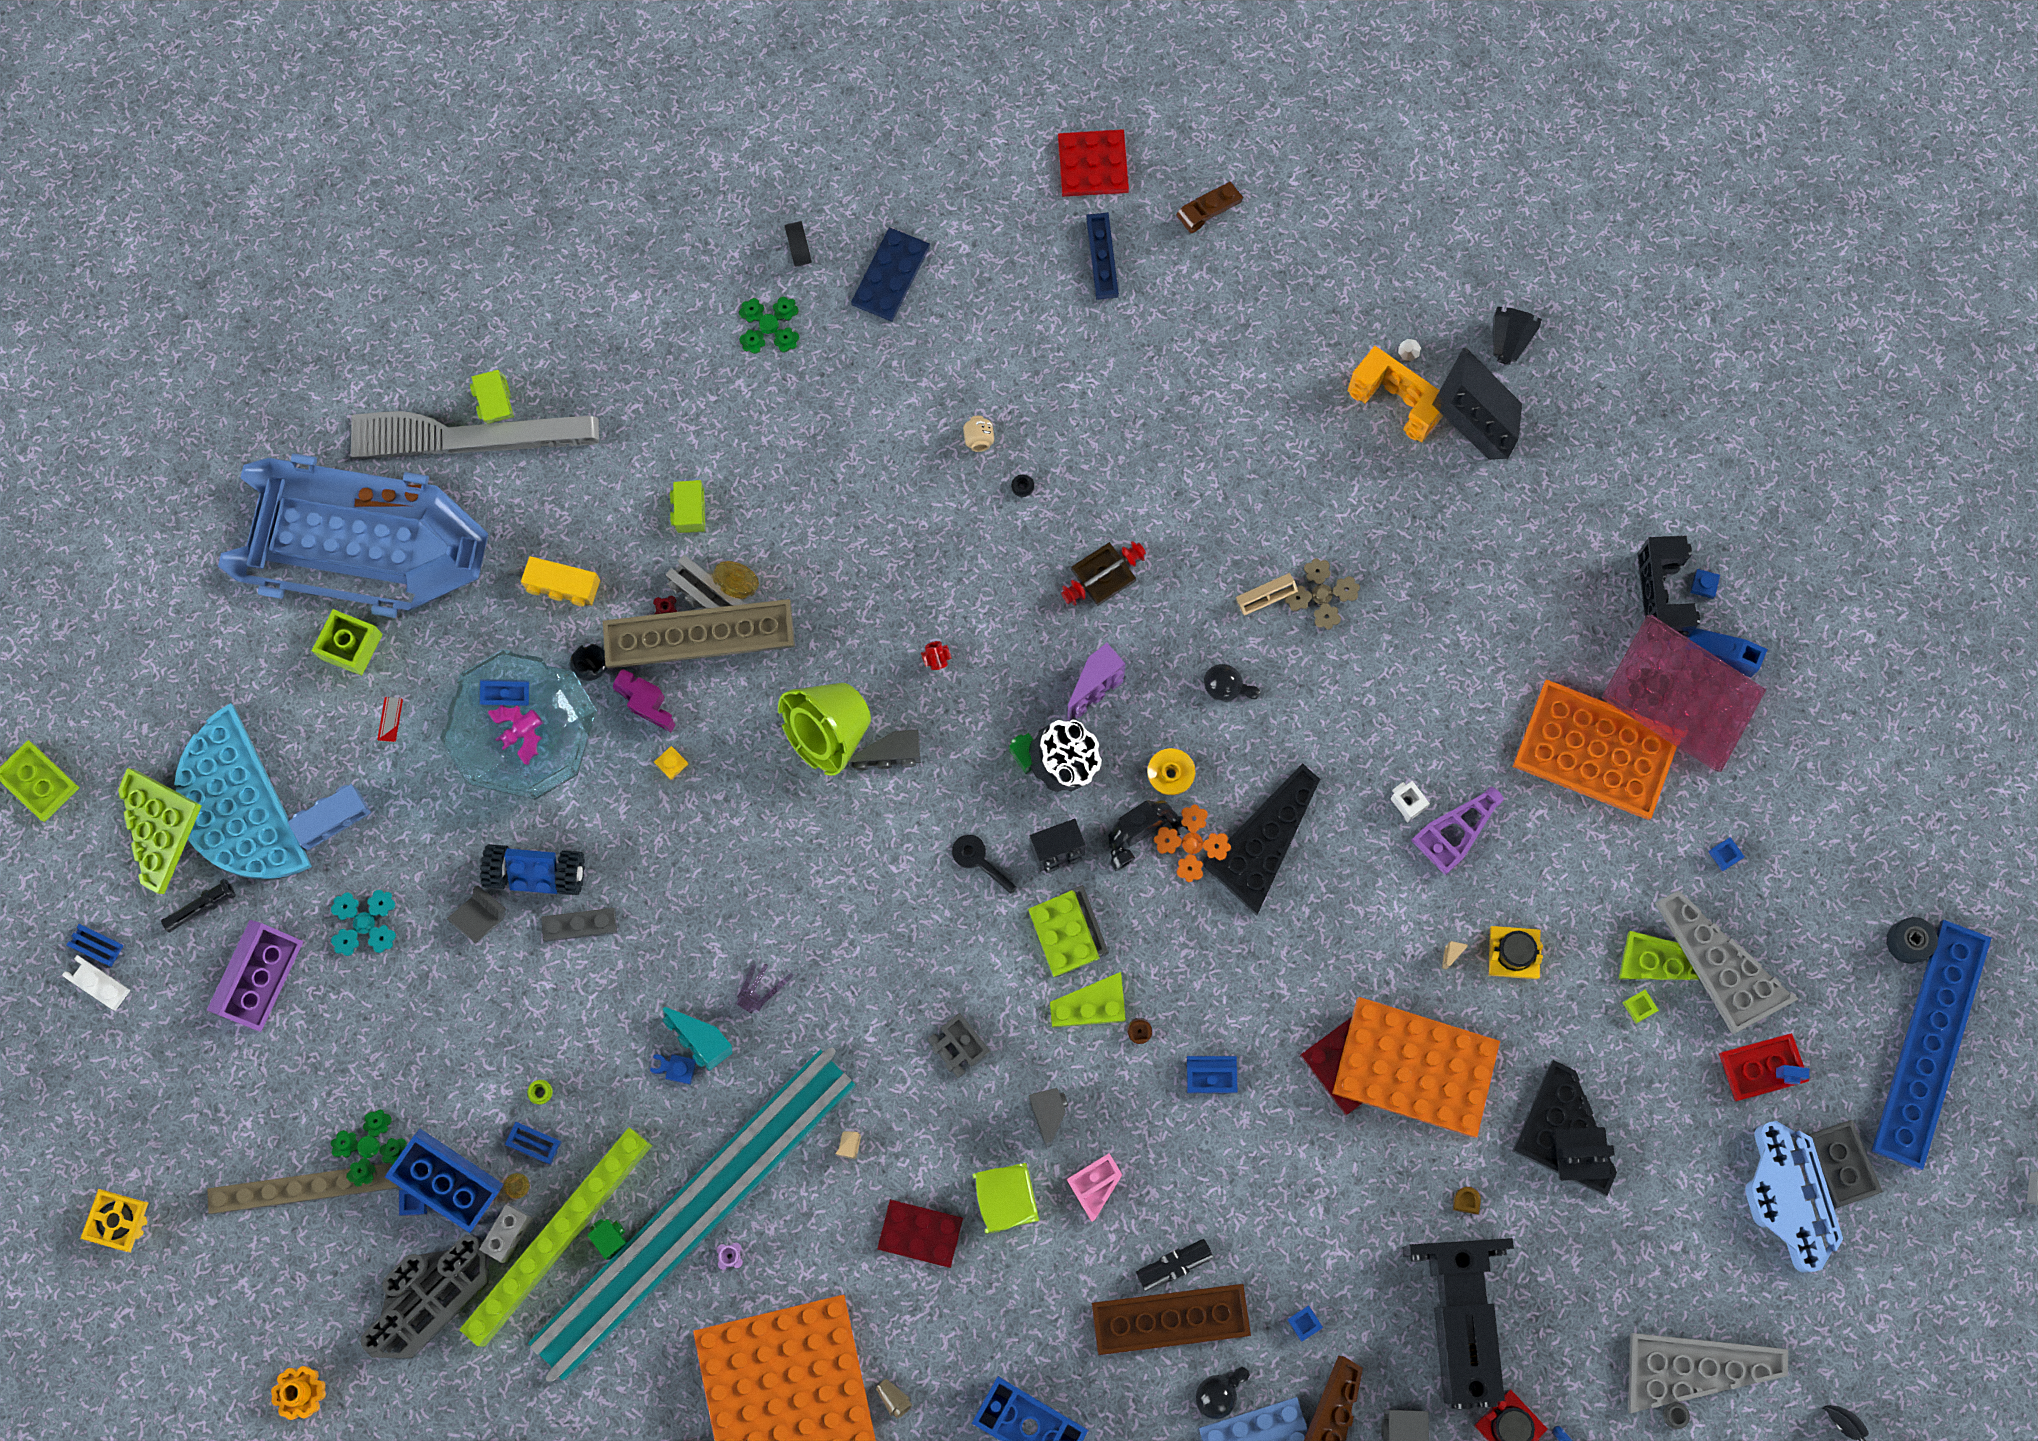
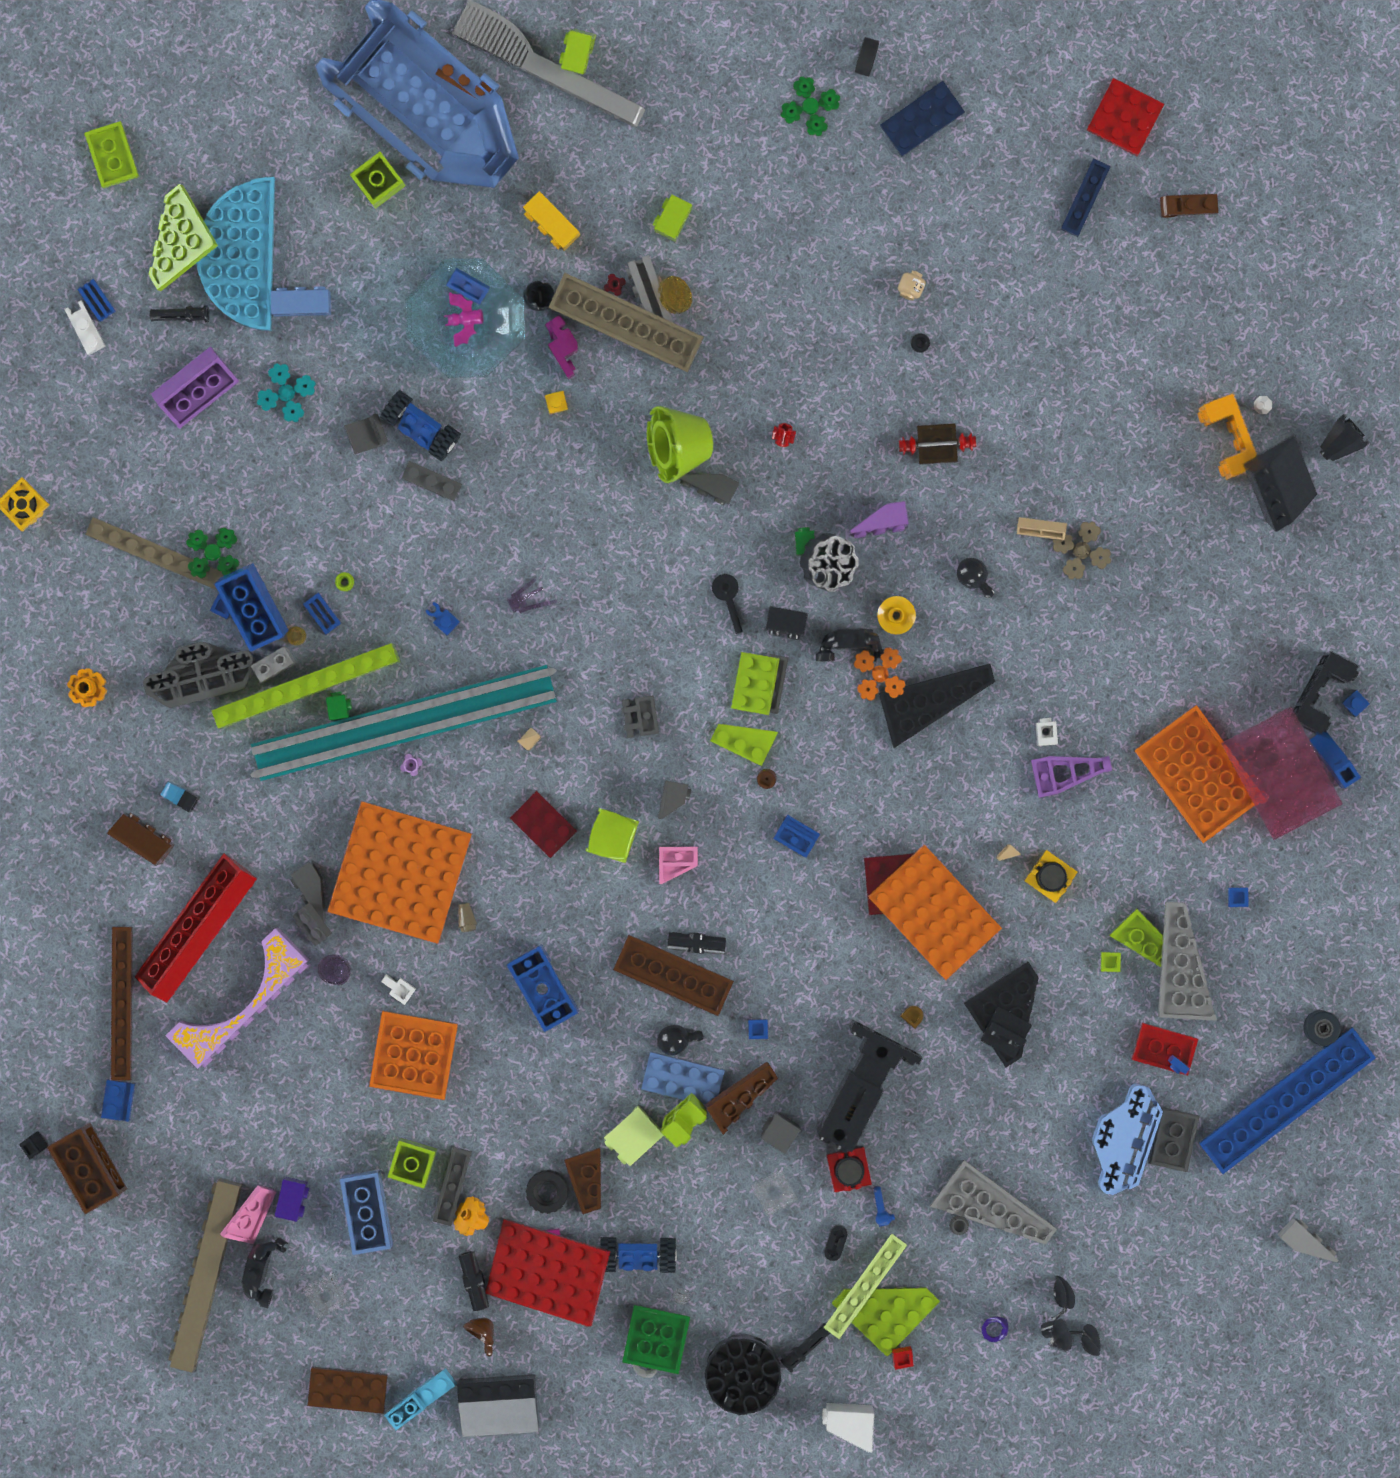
camera: 25 degrees right, 15 degrees up
(390, 719) = (378, 253): sticker -> none
(703, 1039) = (472, 612): teal slope -> none

